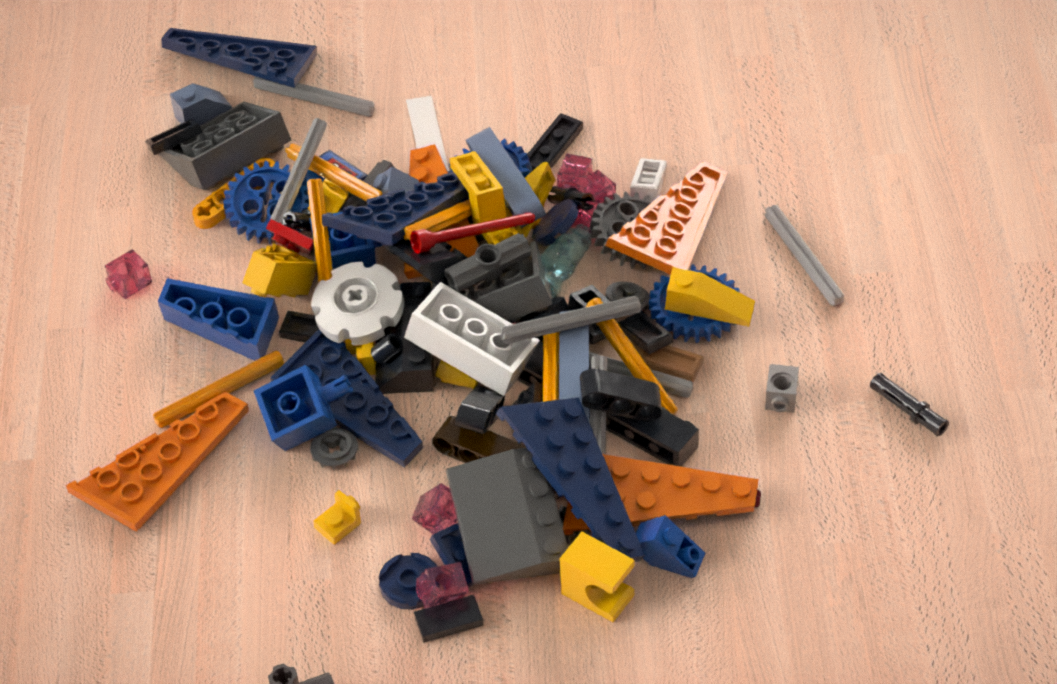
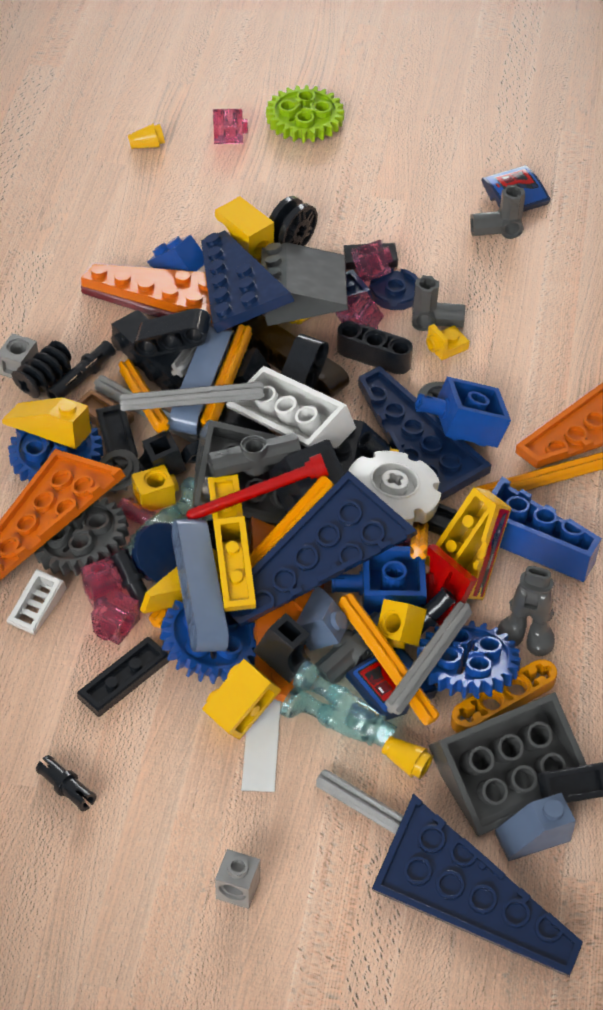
camera: 170 degrees left, 0 degrees up
(217, 218) = (531, 599): none -> dark grey piece
(299, 126) = (408, 756): none -> yellow cone
(362, 544) = (427, 310): none -> dark grey piece
(371, 147) = (344, 712): none -> clear light blue piece
(404, 481) = (374, 347): none -> black beam
(413, 29) = (237, 879): none -> light grey brick
(420, 153) = (284, 647): none -> black brick
(445, 127) = (240, 699): none -> yellow brick
(546, 603) = (293, 221): none -> black wheel
(563, 63) = (66, 783): none -> black pin
(586, 276) = (154, 487): none -> yellow brick
(595, 267) = (135, 511): none -> clear pink pin
(707, 400) = (102, 353): none -> black pin
(747, 374) = (43, 369): none -> black piece

